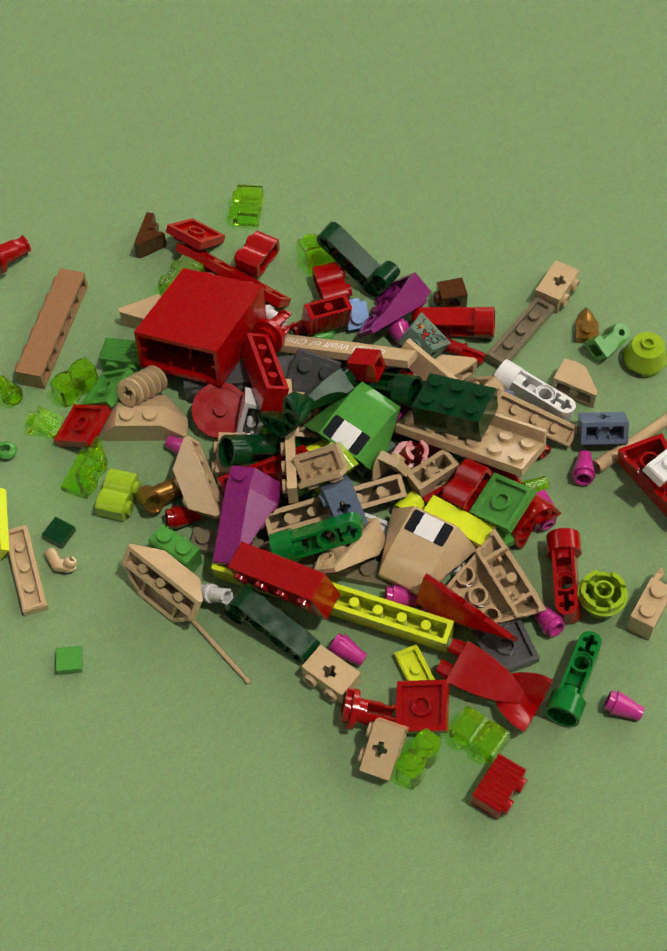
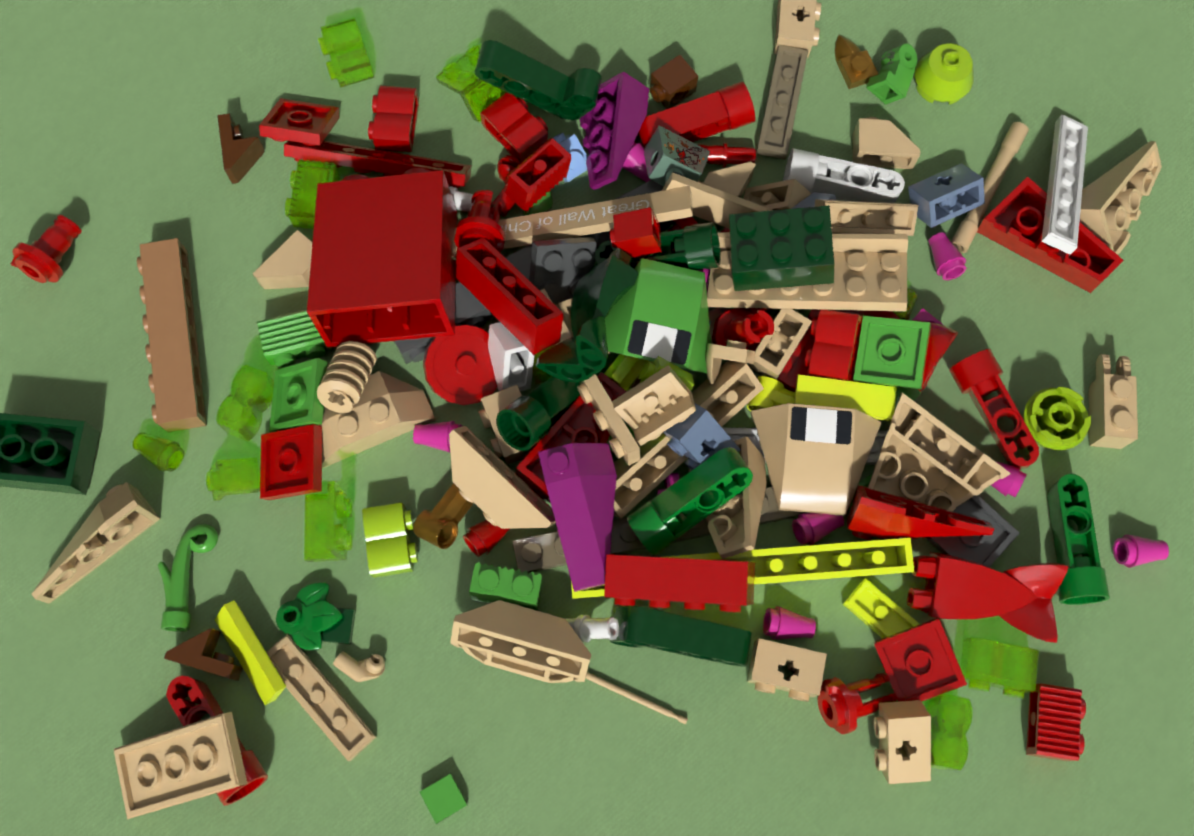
camera: 30 degrees left, 15 degrees up
(45, 518) = (312, 616): none -> green plate

